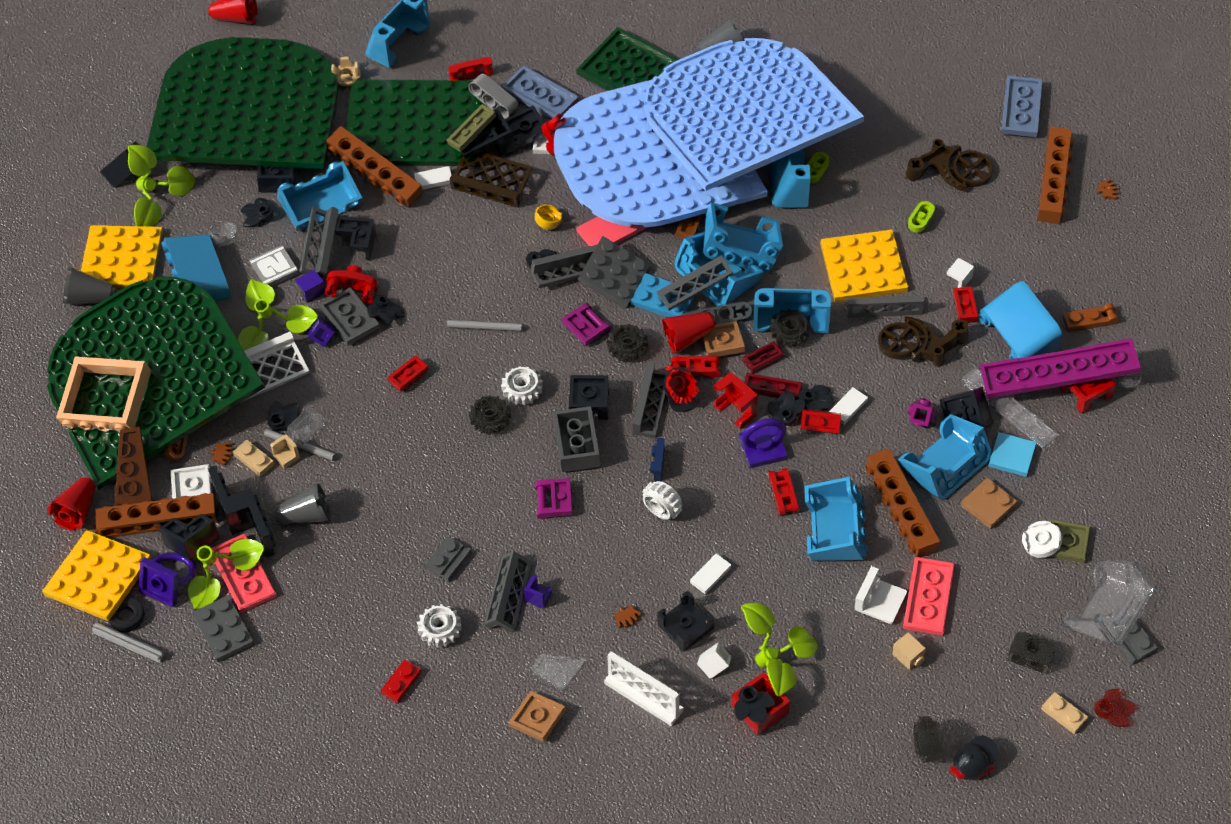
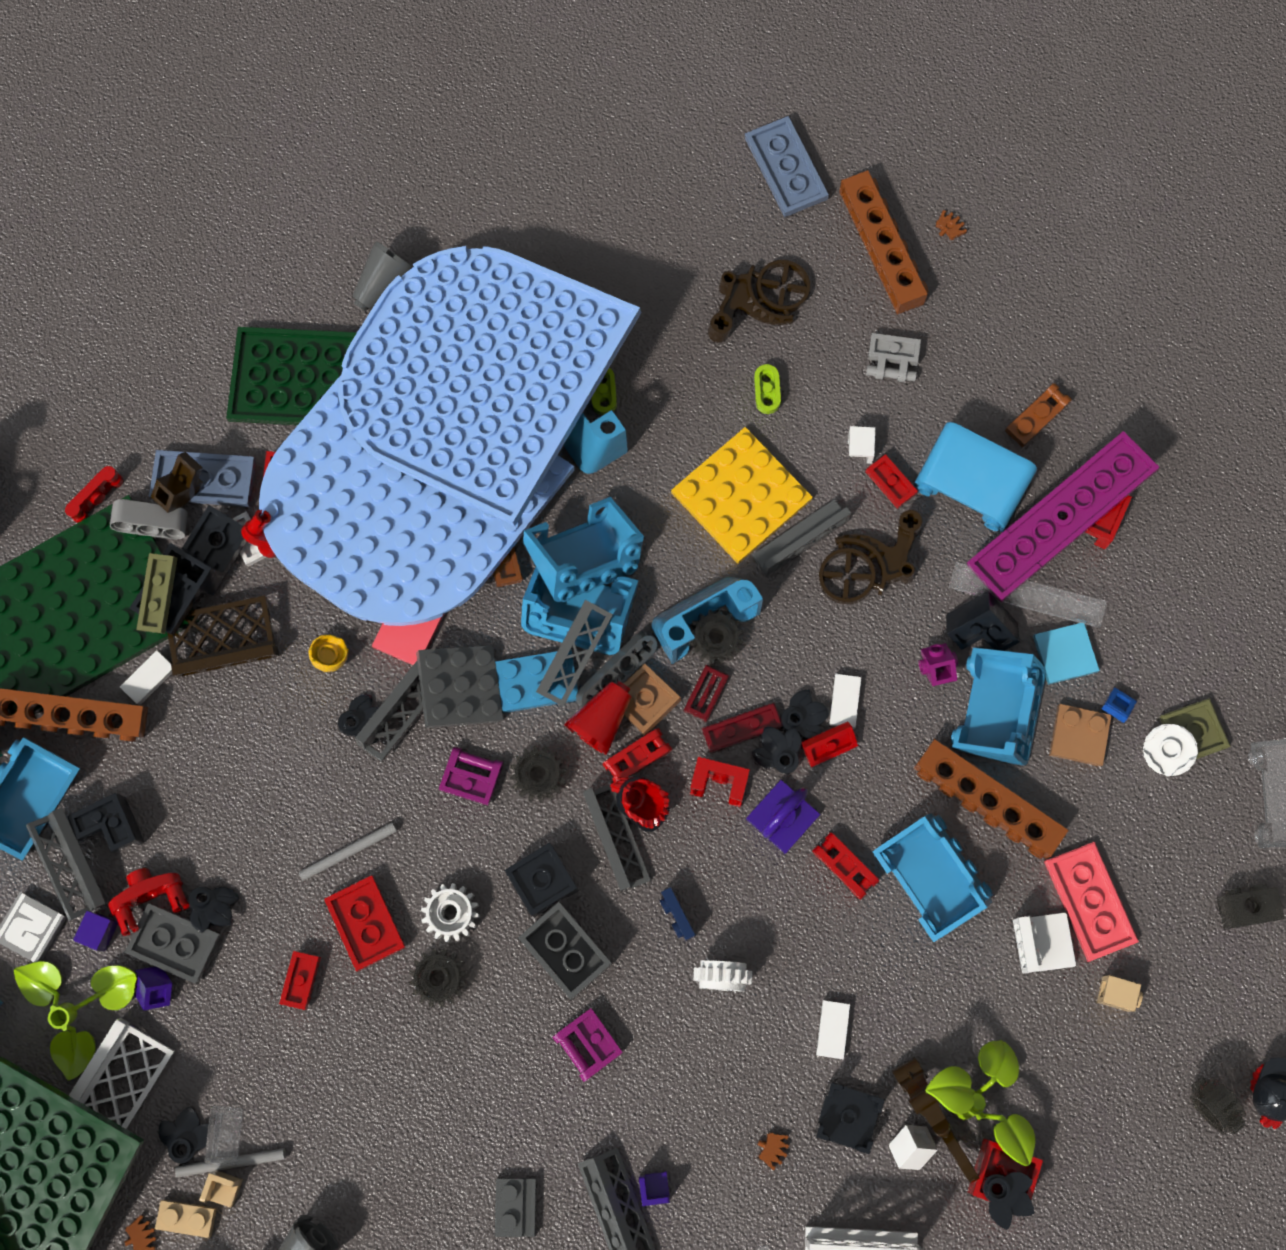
camera: 30 degrees left, 20 degrees up
(467, 365) = (364, 923): none -> red plate
(524, 87) = (179, 486): none -> dark brown brick
(738, 625) = (914, 1082): none -> dark brown piece
(1018, 235) = (893, 350): none -> light grey plate
(1026, 498) = (1119, 705): none -> blue tile

